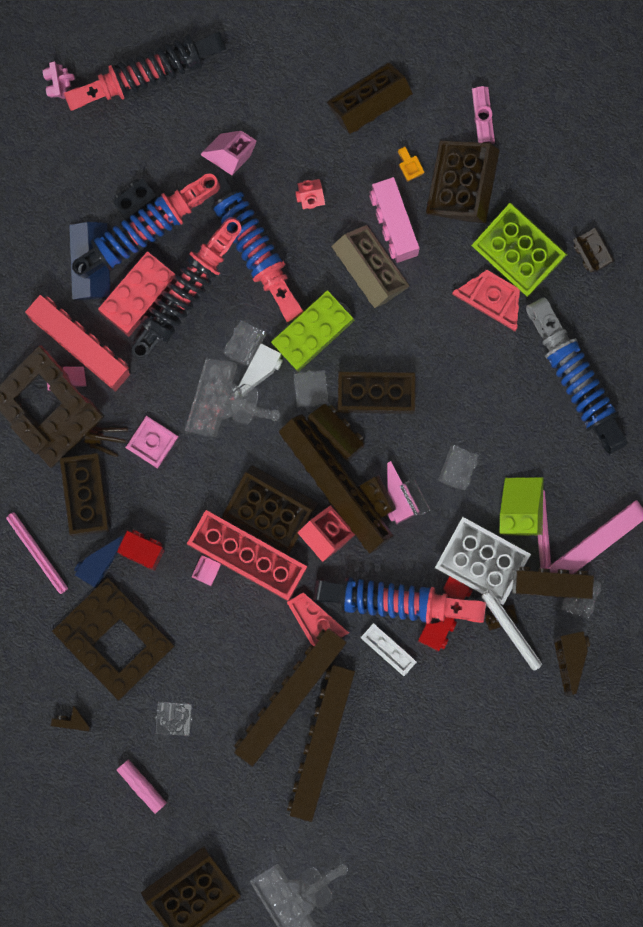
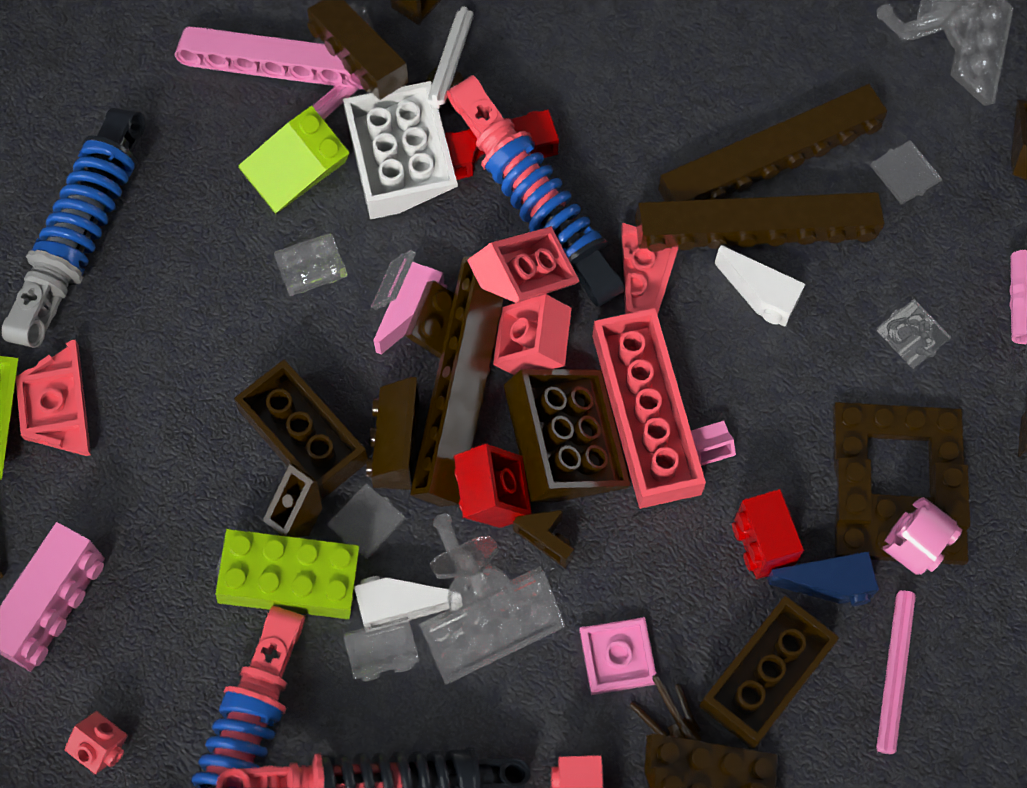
camera: 135 degrees left, 15 degrees down
(77, 612) = (921, 537): none -> bright pink brick
(236, 456) = (538, 531): none -> dark brown slope
(251, 667) = (763, 288): none -> white slope
(254, 800) = (905, 172): none -> clear piece
(271, 451) = (492, 485): none -> red brick
(340, 356) = (294, 504): none -> dark brown slope
(356, 552) = (523, 266): none -> coral slope
(370, 266) = (137, 582): dark tan slope -> none
(388, 649) = (598, 170): white plate -> none

